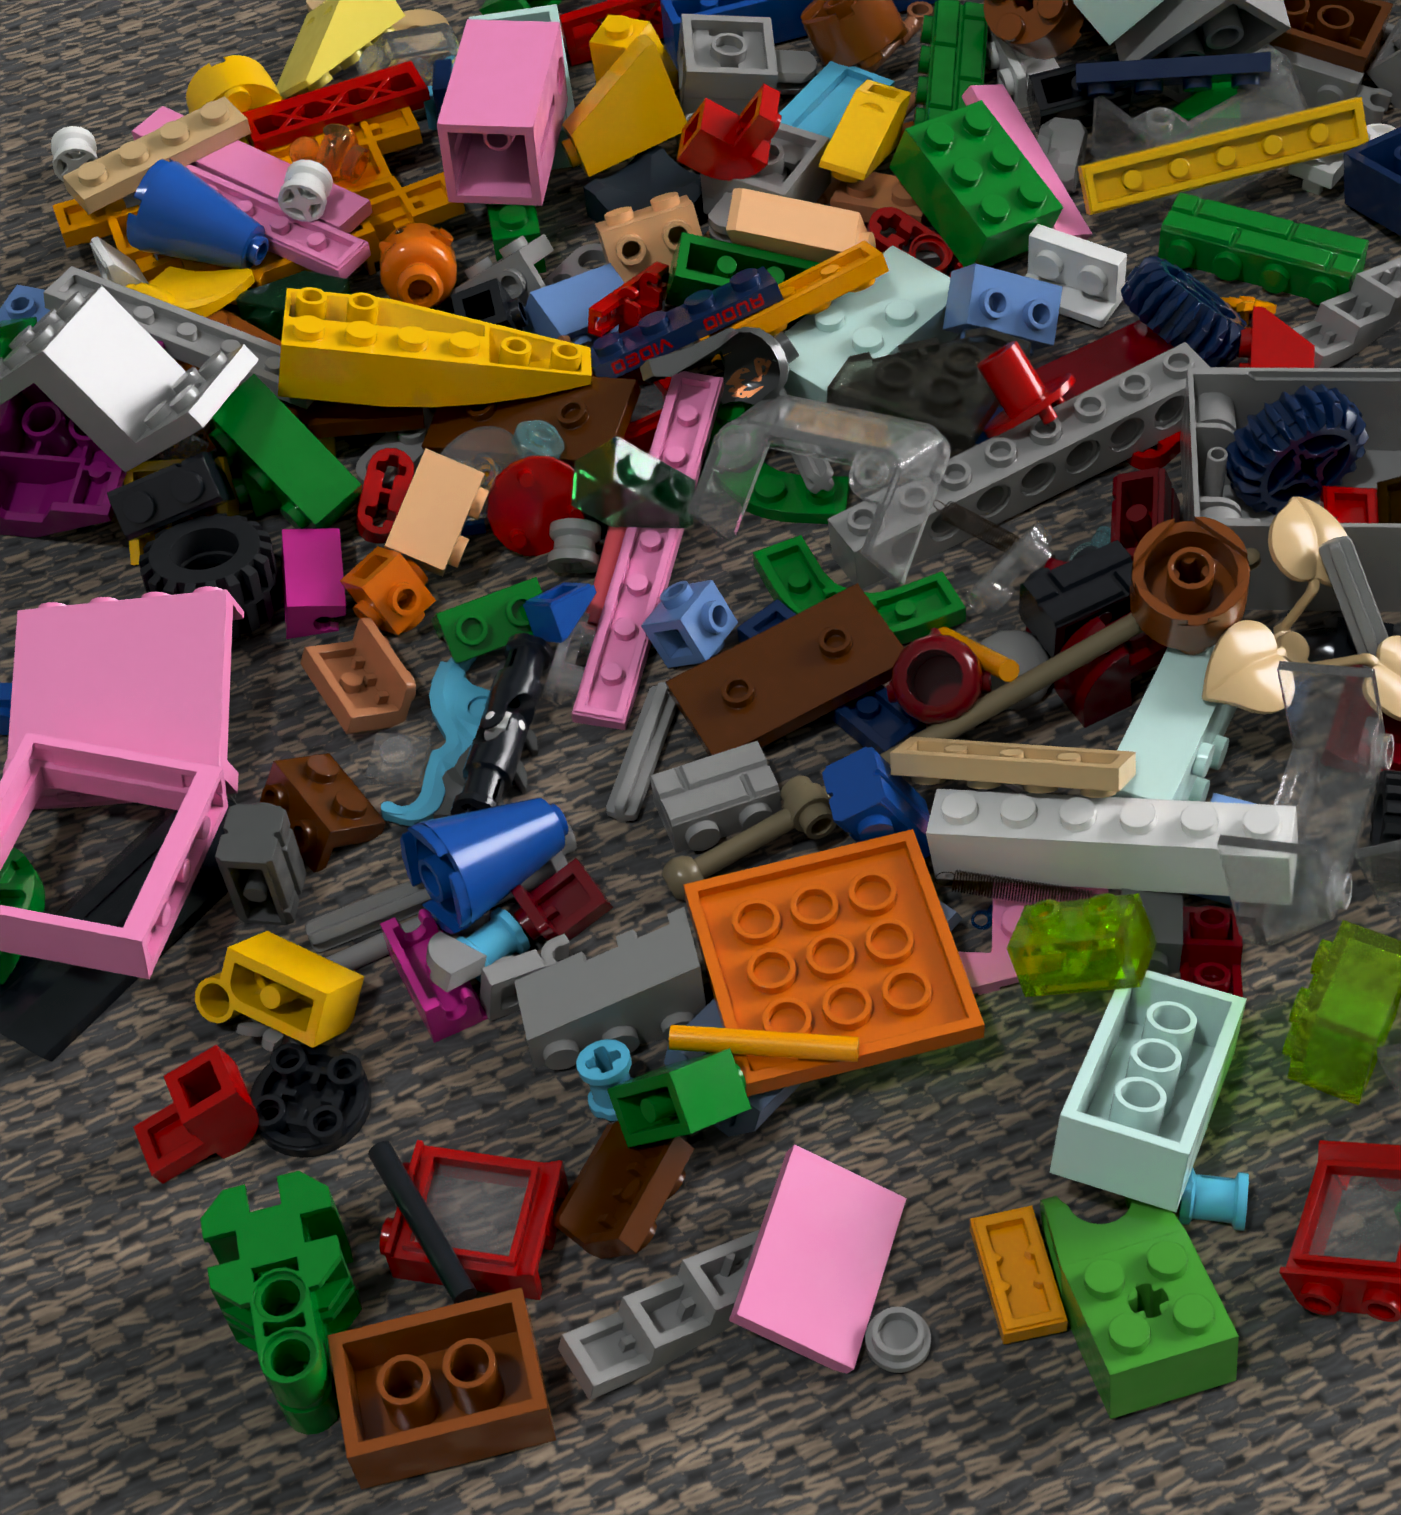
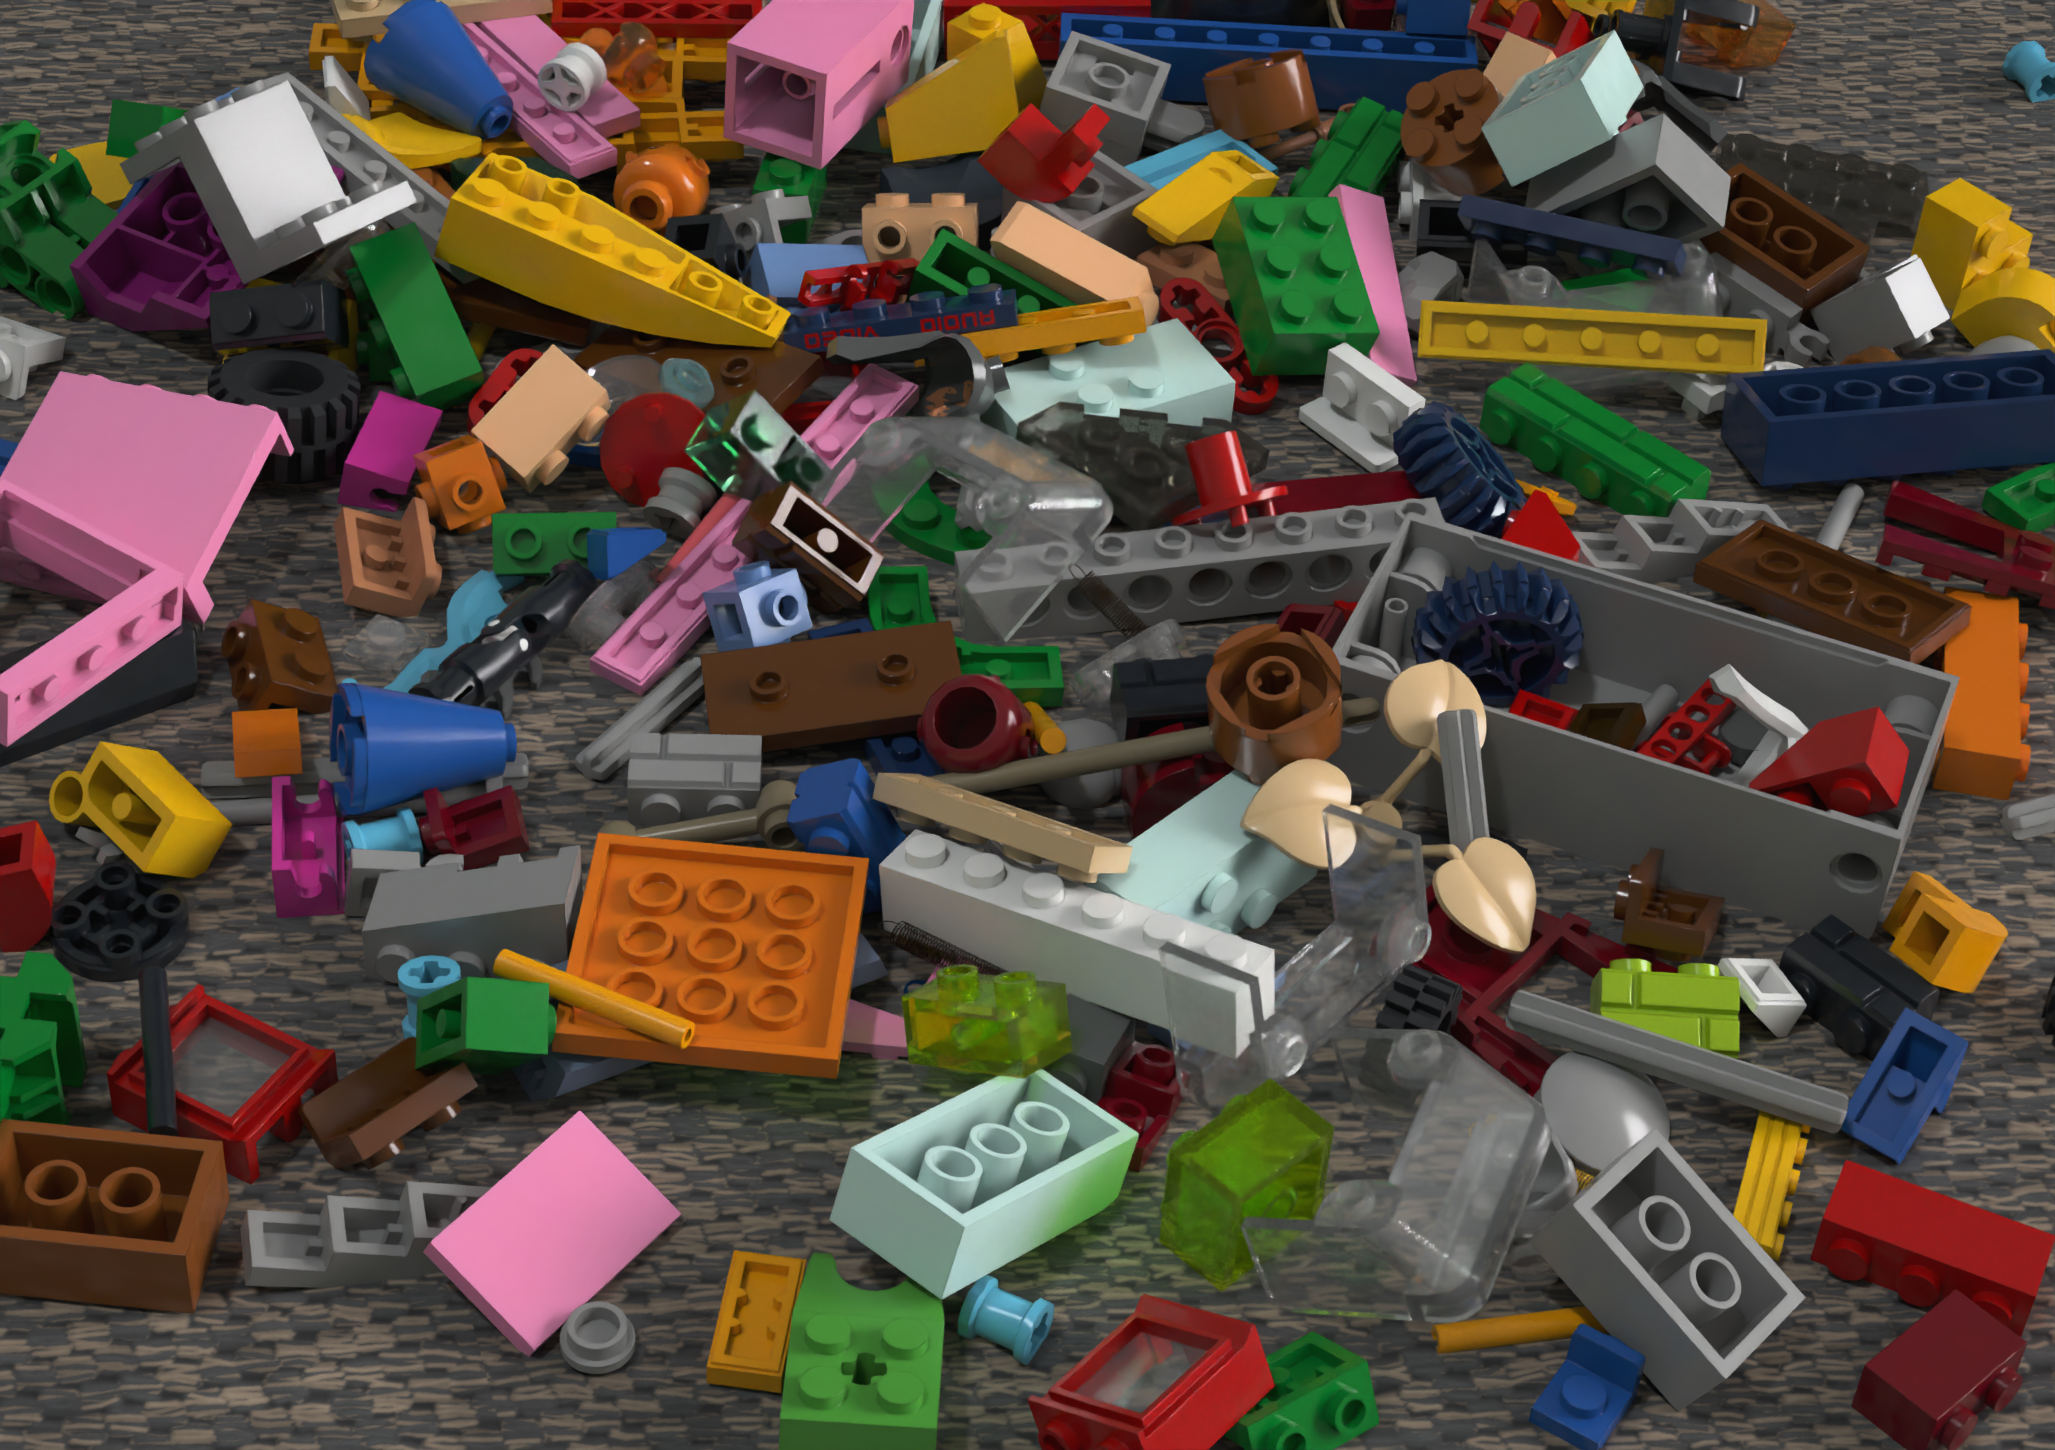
camera: 10 degrees right, 10 degrees down
(261, 864) = (183, 686): dark grey brick -> none
(350, 888) = (266, 743): none -> orange tile
(452, 961) = (326, 835): light grey tile -> none
(706, 549) = (802, 534): none -> reddish brown brick
(1003, 303) = (1267, 409): medium blue brick -> none

